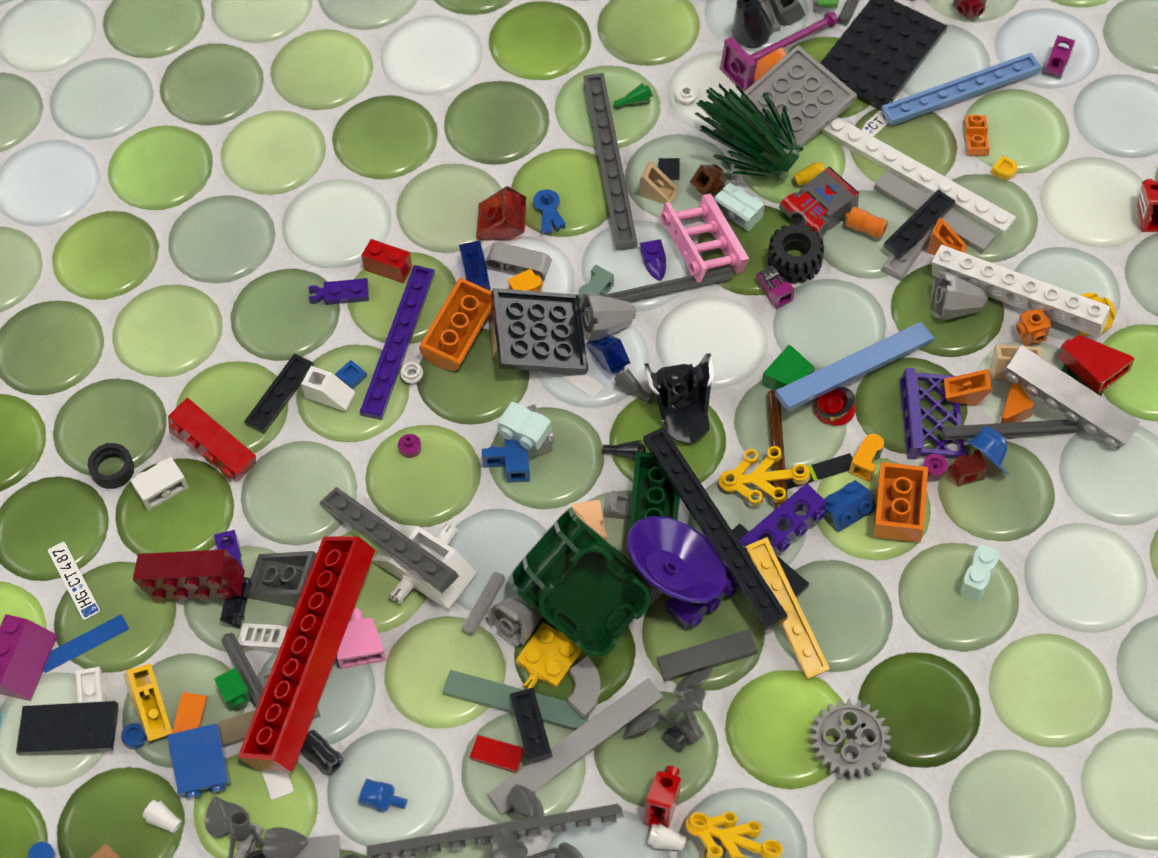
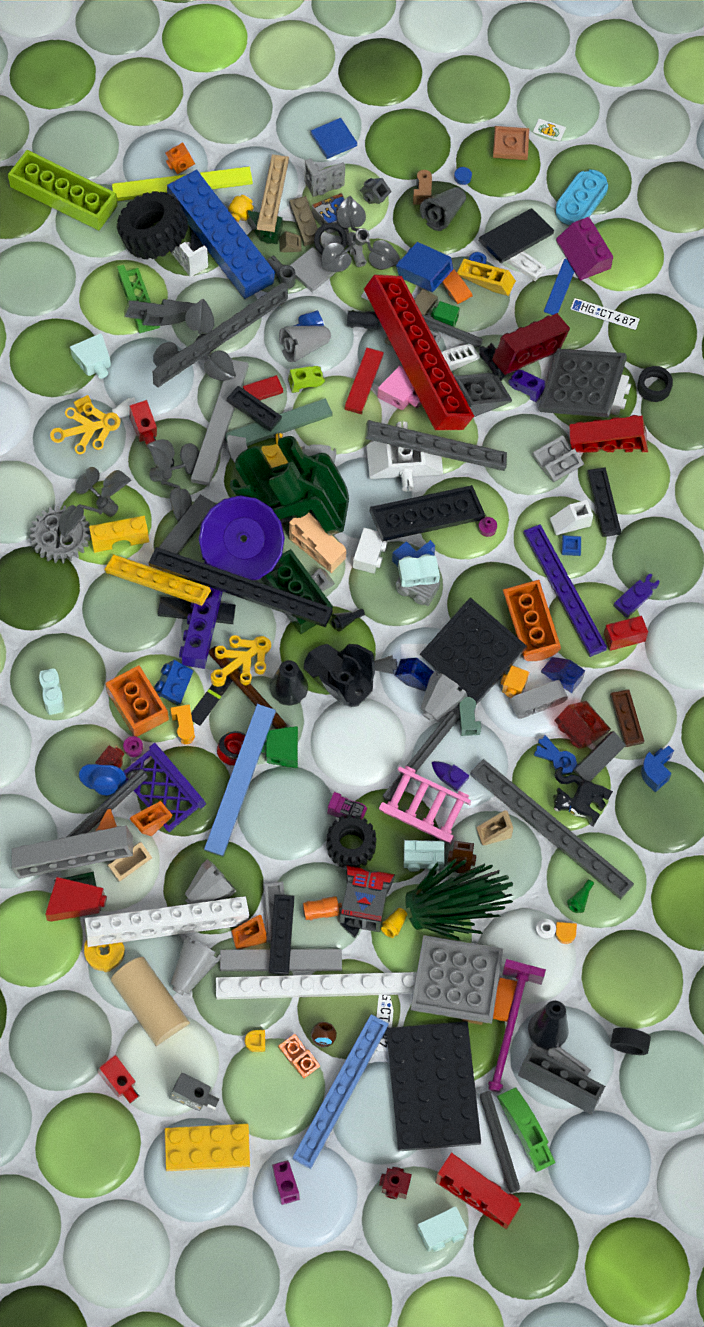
camera: 135 degrees right, 5 degrees up
(106, 819) = (442, 208): none -> dark grey cone
(160, 816) = (417, 232): white cone -> none
(179, 504) = (582, 382): none -> dark grey plate
(278, 462) = (557, 459): none -> light grey slope
(383, 684) = (364, 380): none -> red tile
(408, 769) = (302, 340): none -> light grey cone
(411, 367) = (533, 568): white plate -> none
(444, 728) = (305, 377): none -> lime leg
(456, 202) = (627, 718): none -> reddish brown tile
(459, 486) = (427, 513): none -> black plate
(477, 147) = (653, 768): none -> blue brick
(483, 603) = (349, 464): light grey axle -> none
(520, 183) = (599, 756): none -> dark grey tile
(546, 496) = (369, 551): none -> white brick
(560, 161) = (584, 796): none -> black animal
(670, 83) = (565, 932): none -> light orange tile
(670, 167) = (502, 854): black tile -> none
(735, 423) = (289, 684): none -> black cone
(764, 712) = (112, 484): none -> dark grey plant
(771, 683) = (130, 529): none -> yellow arch
(944, 131) = (323, 1034): none -> reddish brown piece
(1017, 246) = (192, 965): none -> light grey cone
(1033, 327) = (141, 895): orange brick -> none
(1077, 248) = (149, 1000): none -> tan brick
(1095, 156) = (184, 1093): none -> dark grey torso
(1106, 121) = (207, 1147): none -> yellow plate

